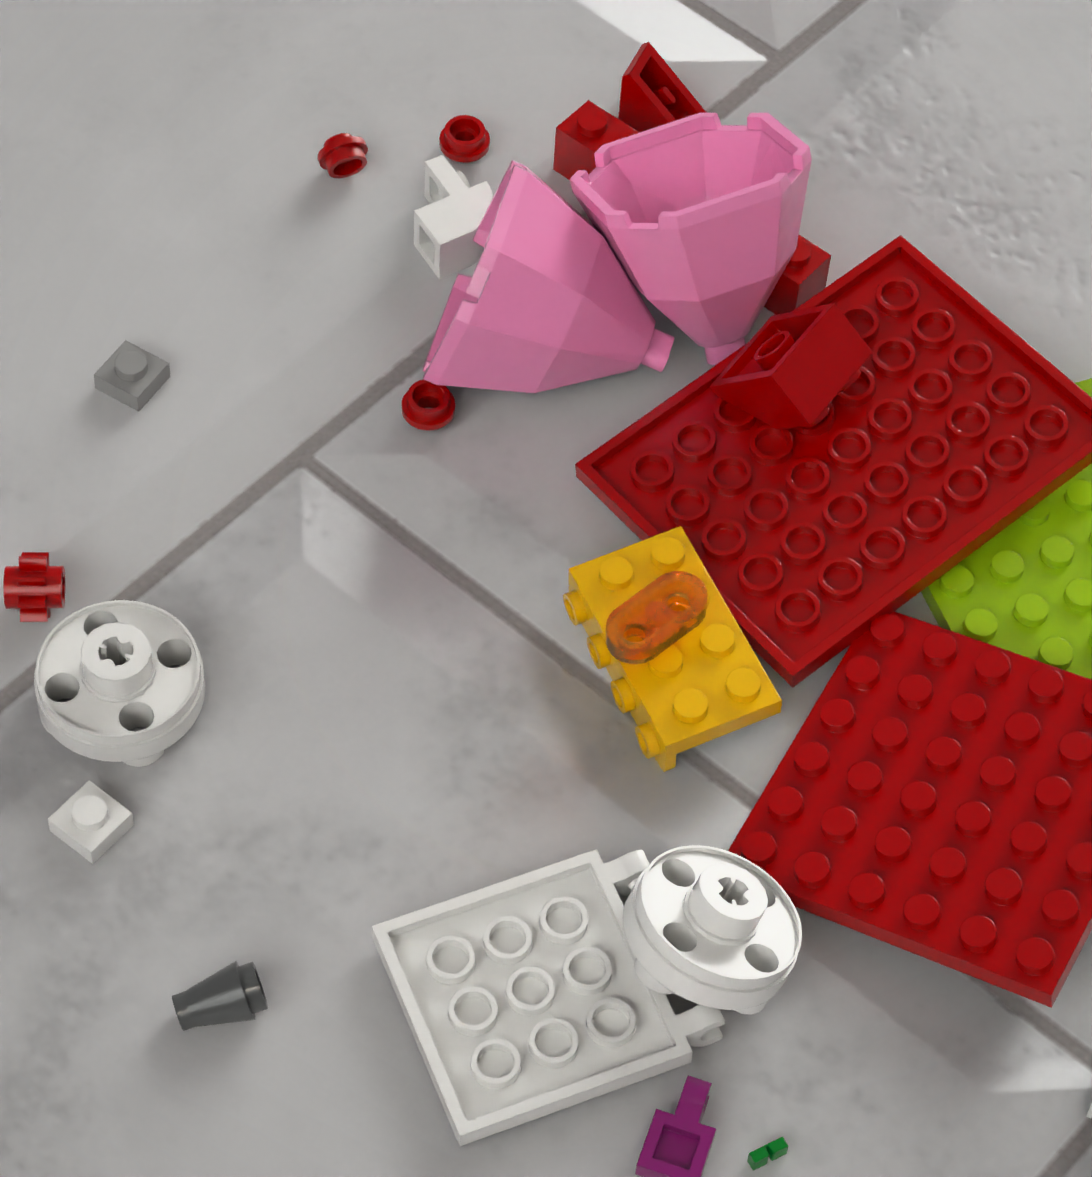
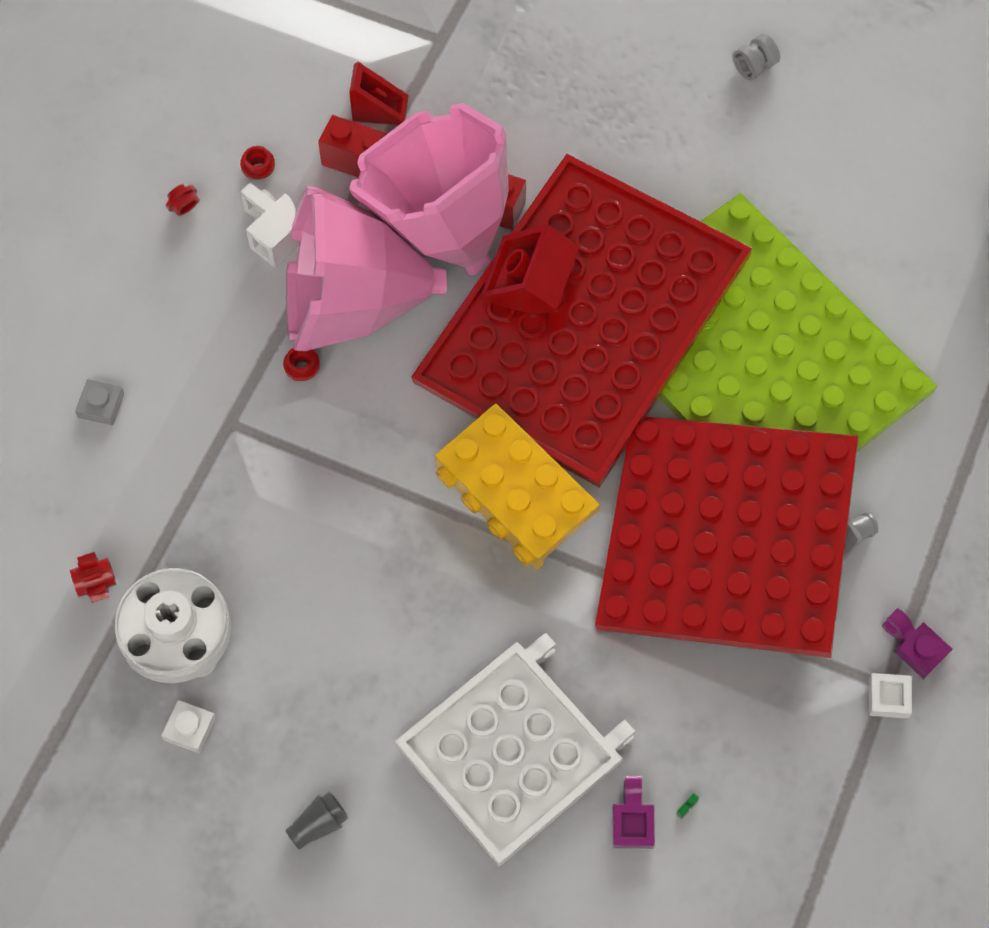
camera: 15 degrees left, 10 degrees up
(651, 619) = (504, 478): clear orange plate -> none
(711, 929) = (608, 675): white piece -> none

